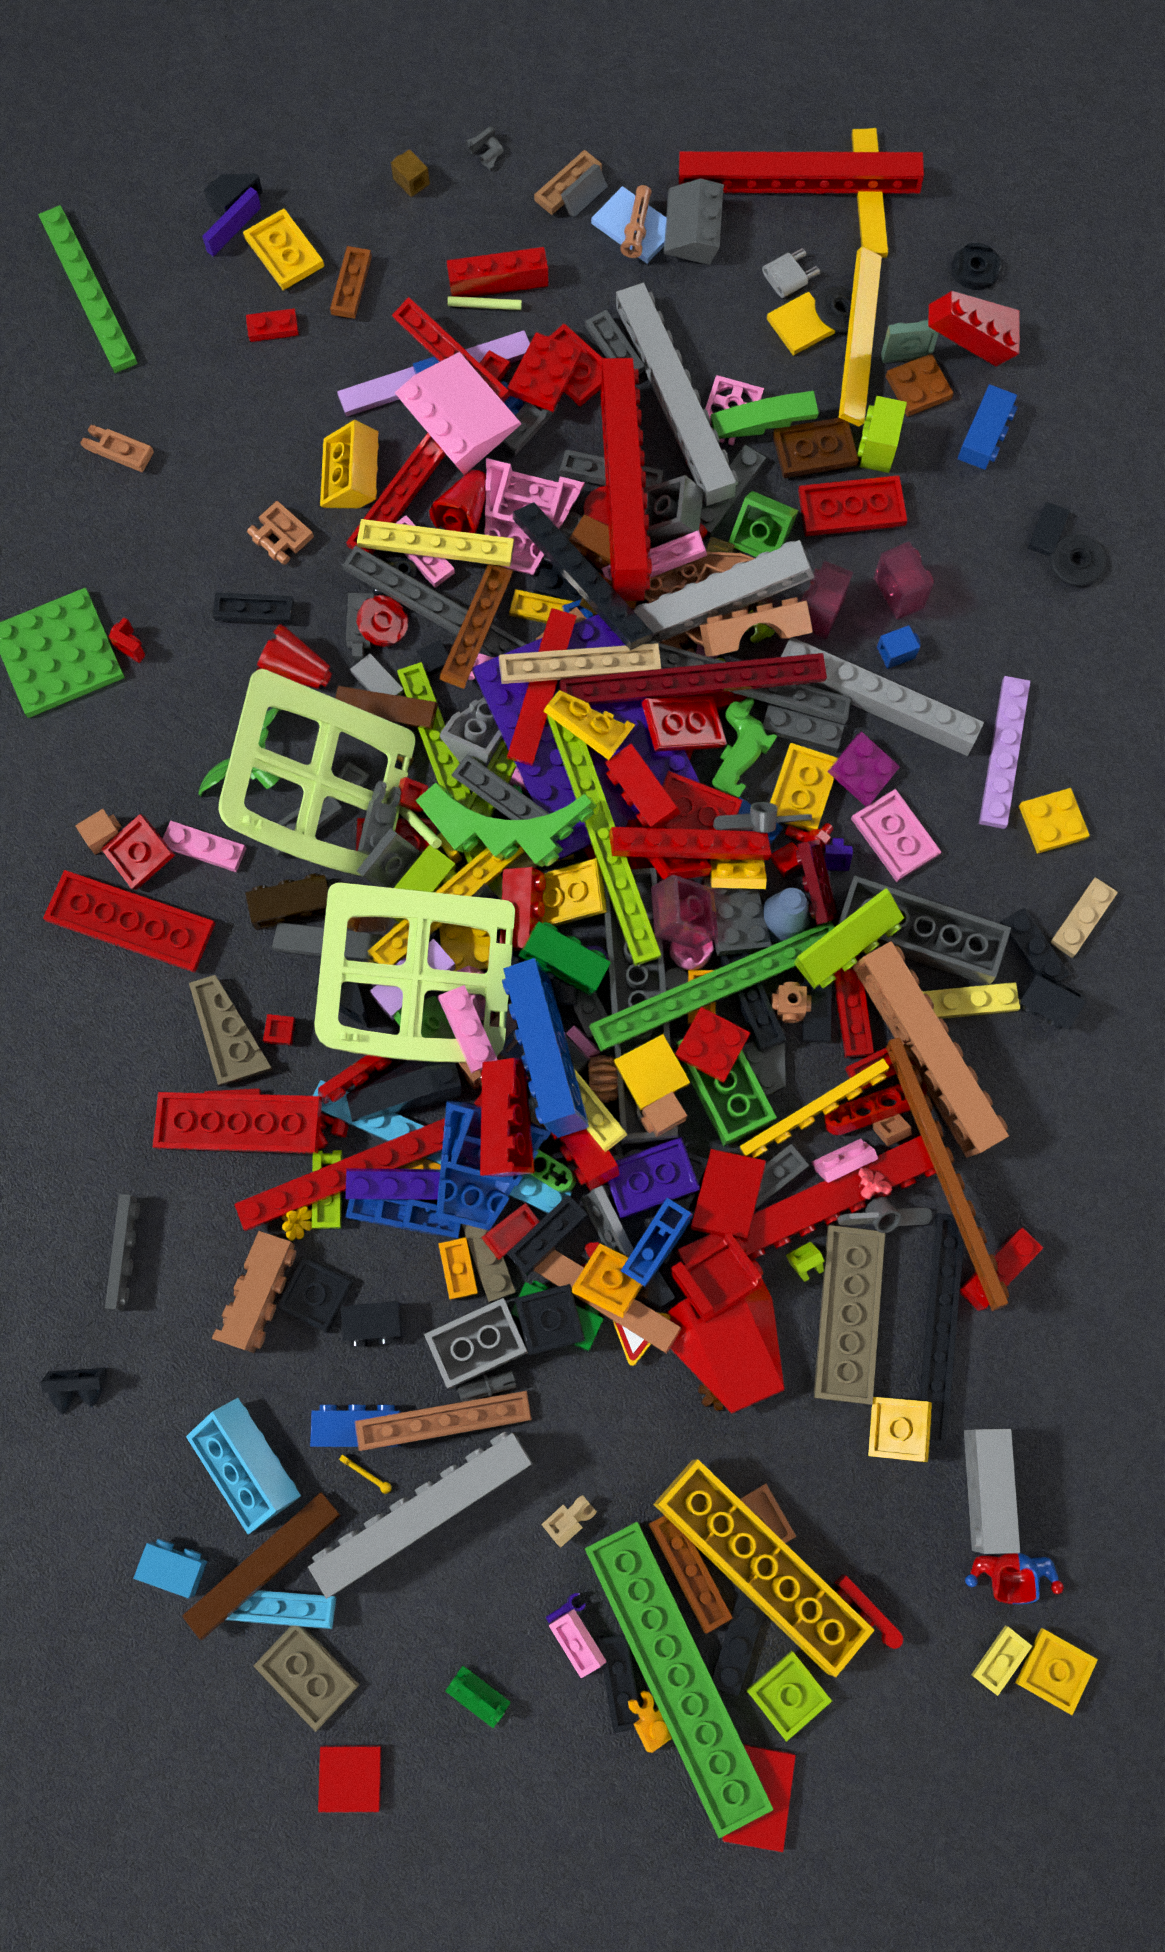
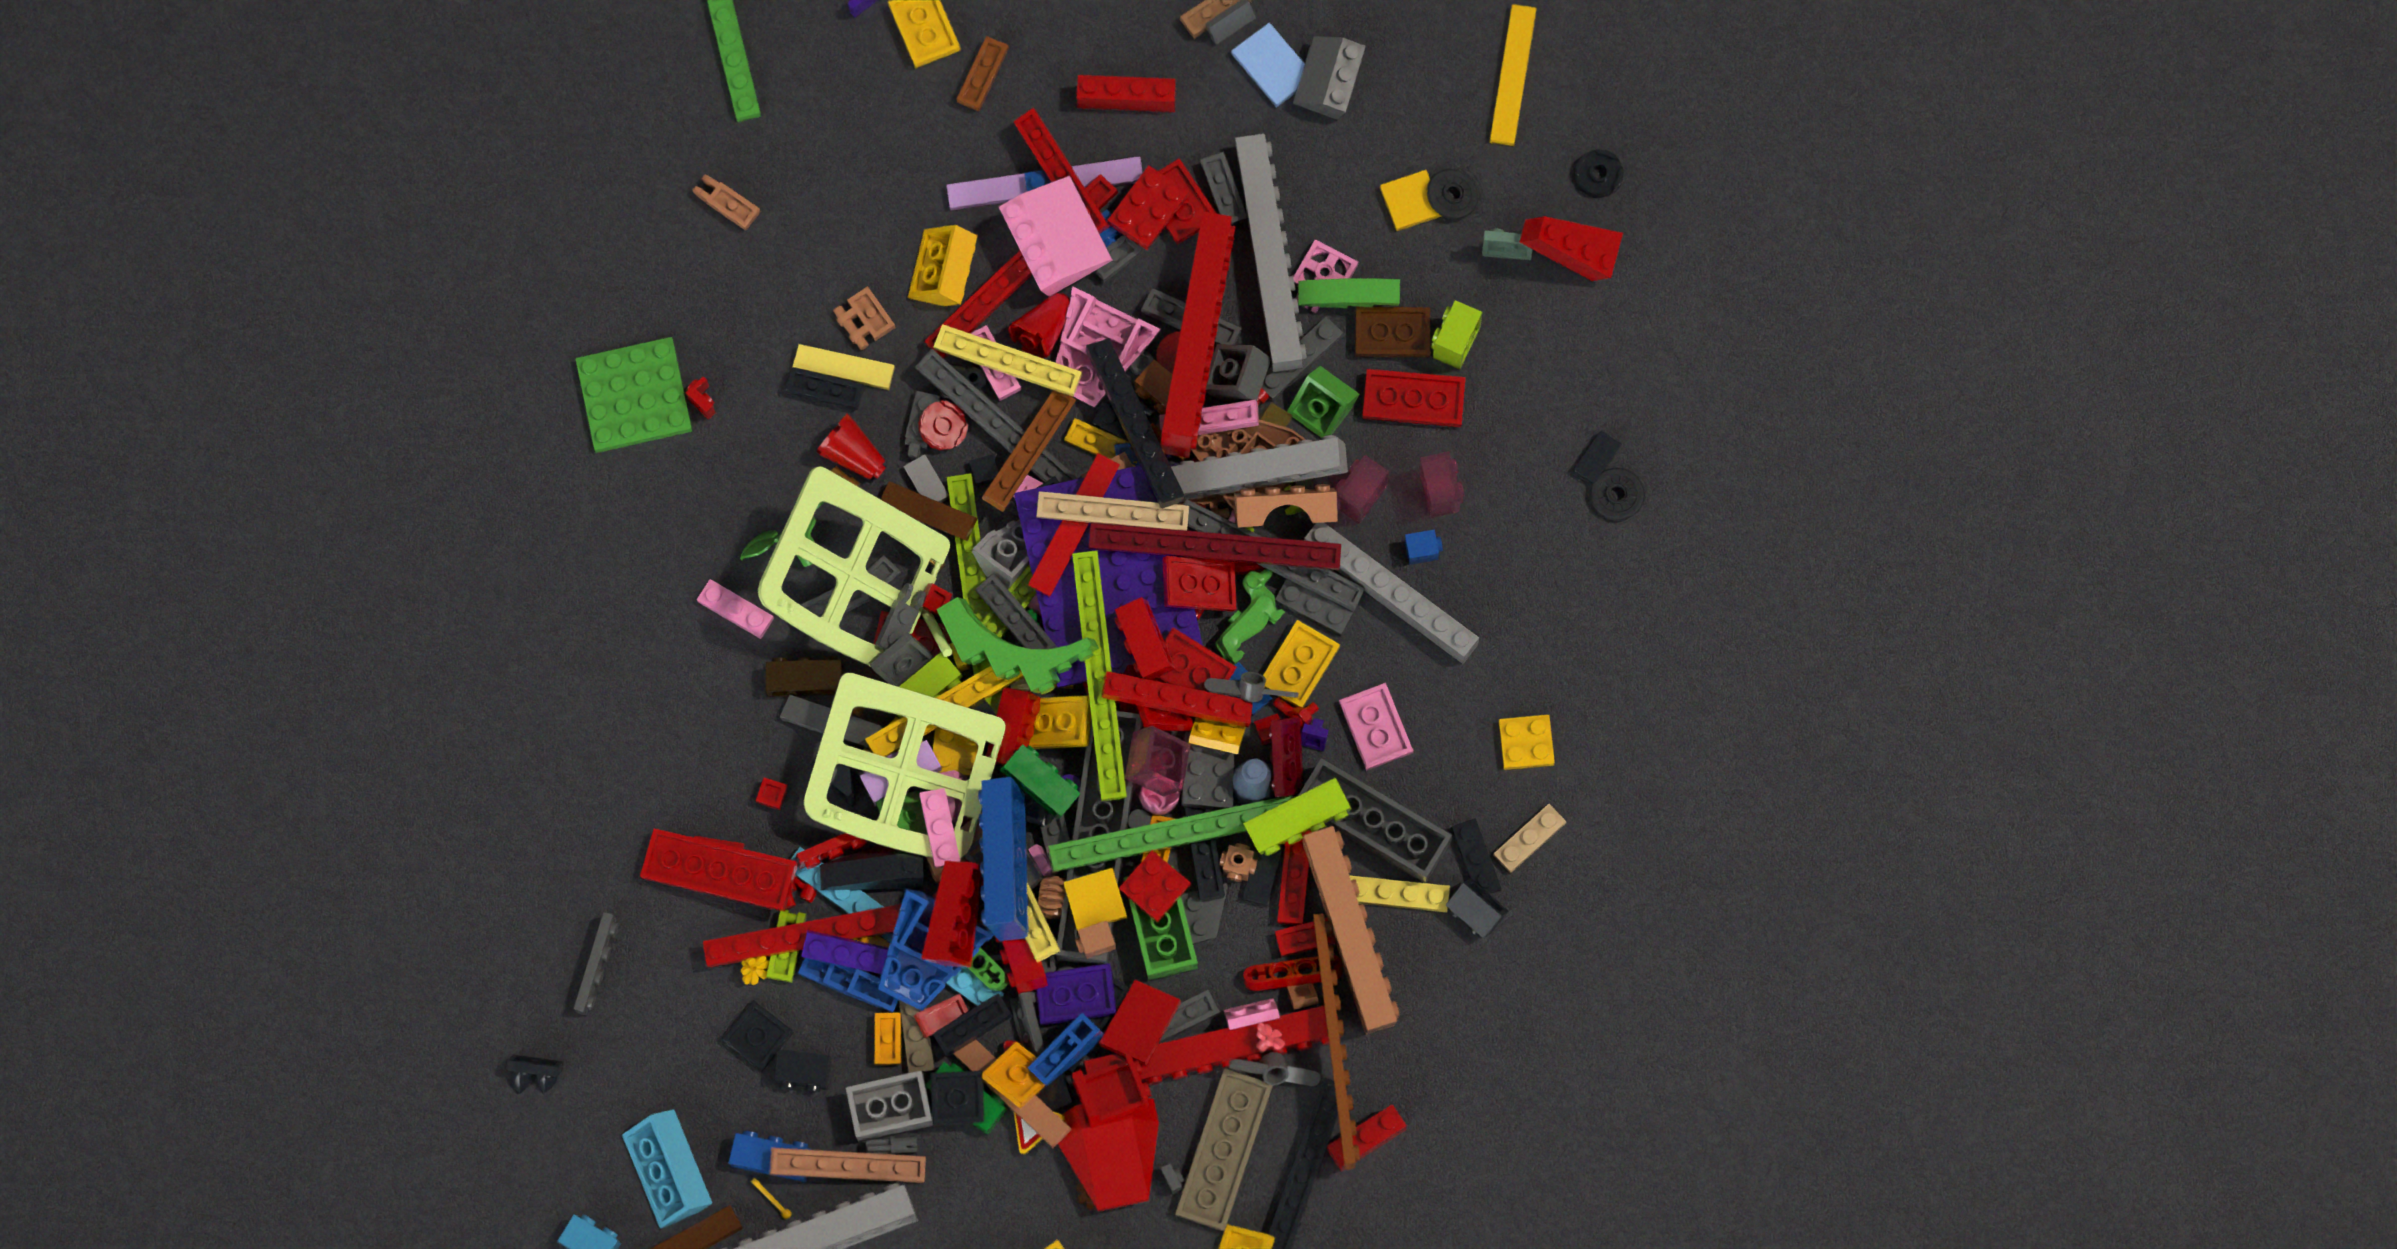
camera: 15 degrees right, 0 degrees up
(98, 830) = (644, 576): nougat brick -> none
(129, 921) = (655, 666): red plate -> none
(138, 852) = (675, 603): plate -> none
(228, 1039) = (724, 791): dark tan wing -> none
(256, 1293) = (707, 1023): nougat wedge -> none
(272, 325) = (898, 102): red plate -> none
(284, 583) = (844, 366): none -> light yellow tile
(486, 303) = (1108, 119): yellowish green bar -> none
(592, 727) = (1112, 575): yellow wing -> none
(631, 238) = (1270, 76): nougat pin -> none
(787, 275) = (1409, 147): light grey piece -> none
(802, 1358) = (1173, 1178): none -> dark grey plate
(805, 171) = (1447, 43): red brick -> none
(805, 1259) = (1195, 1093): lime tile -> none
(825, 1103) = (1225, 967): yellow plate -> none
(860, 337) = (1463, 226): yellow tile -> none
(863, 769) = (1359, 658): magenta plate -> none
(919, 384) = (1511, 286): dark orange plate -> none
(988, 427) = (1564, 345): blue brick -> none
(1004, 752) = (1497, 667): lavender plate -> none

